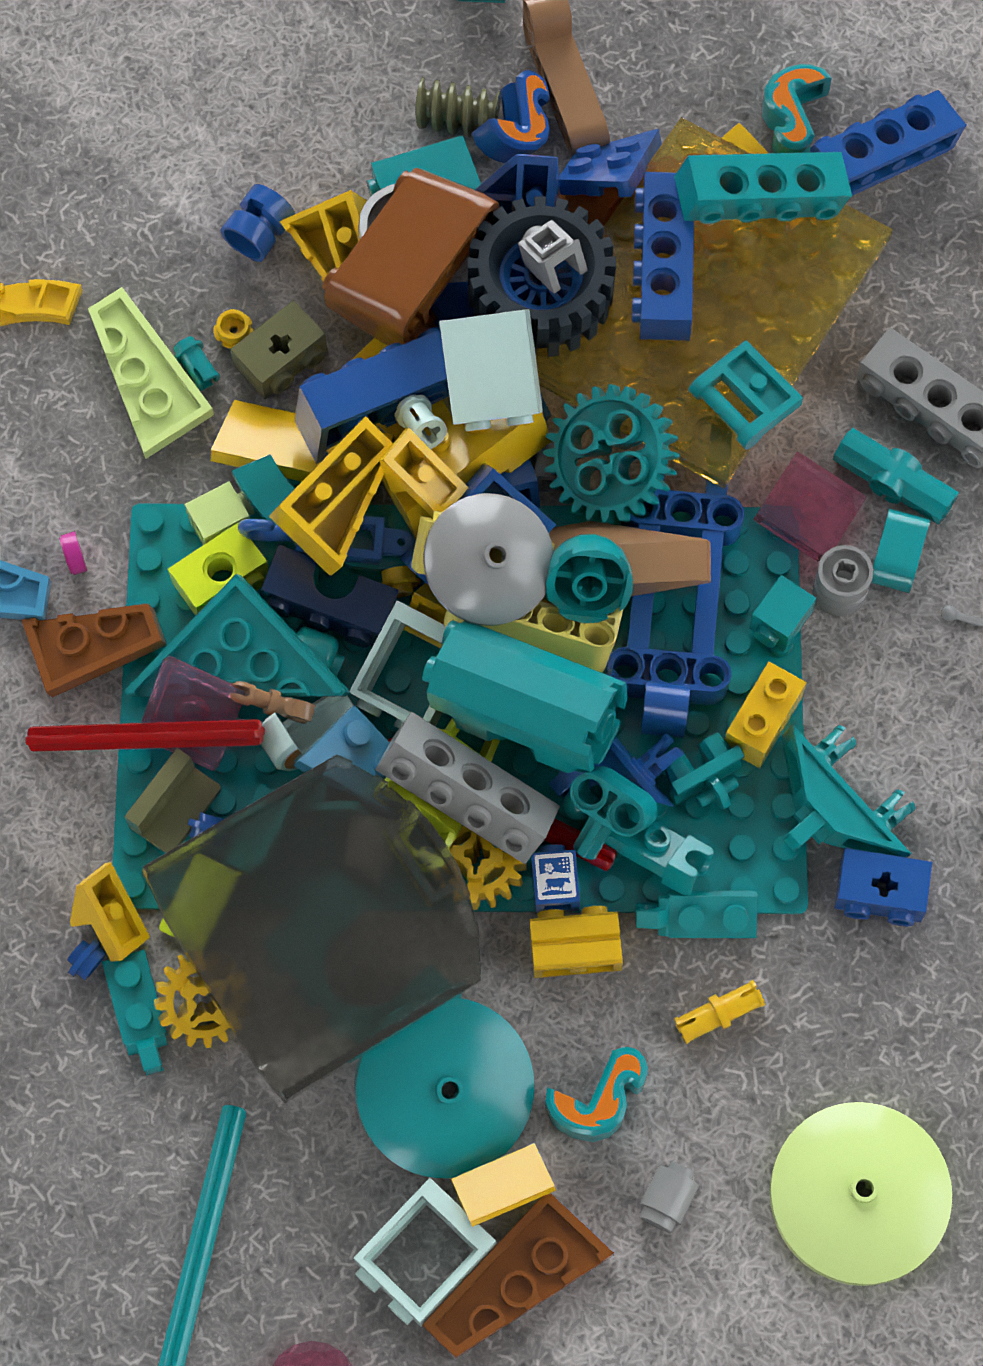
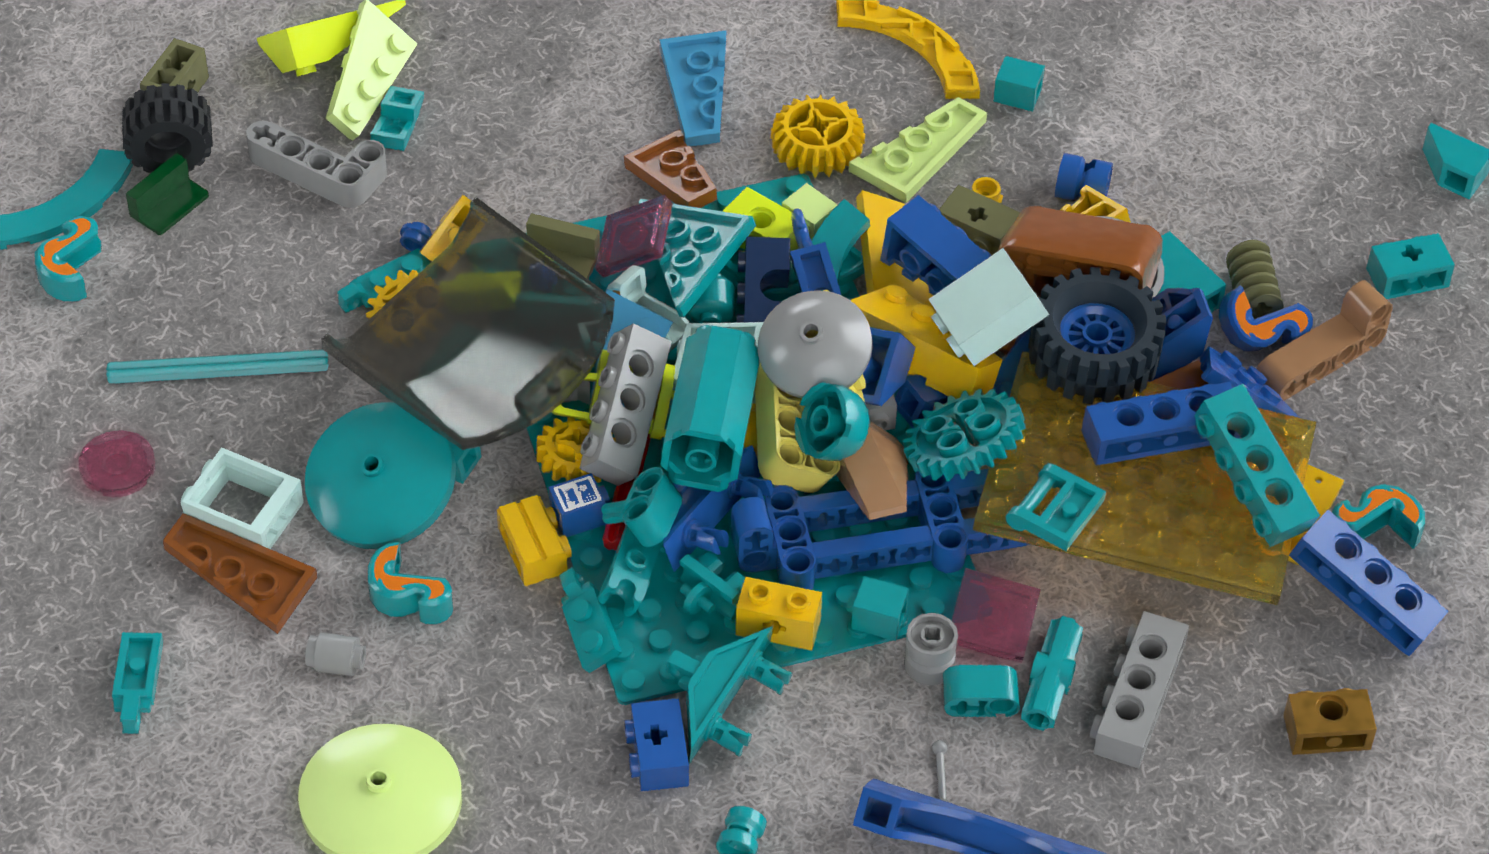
camera: 70 degrees right, 20 degrees down
(56, 467) = (817, 135): none -> yellow gear
(73, 553) = (746, 143): dark pink tile -> none
(90, 238) = (1019, 83): none -> teal panel
(145, 735) = (604, 212): red axle -> none
(196, 363) = (950, 171): teal pin -> none
(272, 702) = (655, 270): medium nougat piece -> none
(333, 498) = (839, 248): yellow wedge -> none
(421, 473) = (878, 286): yellow slope -> none
(424, 419) = (920, 290): light aqua bush -> none
(503, 1185) = (311, 533): yellow panel -> none
(547, 247) = (1113, 313): light grey window -> none
(719, 1011) = (507, 655): yellow pin -> none

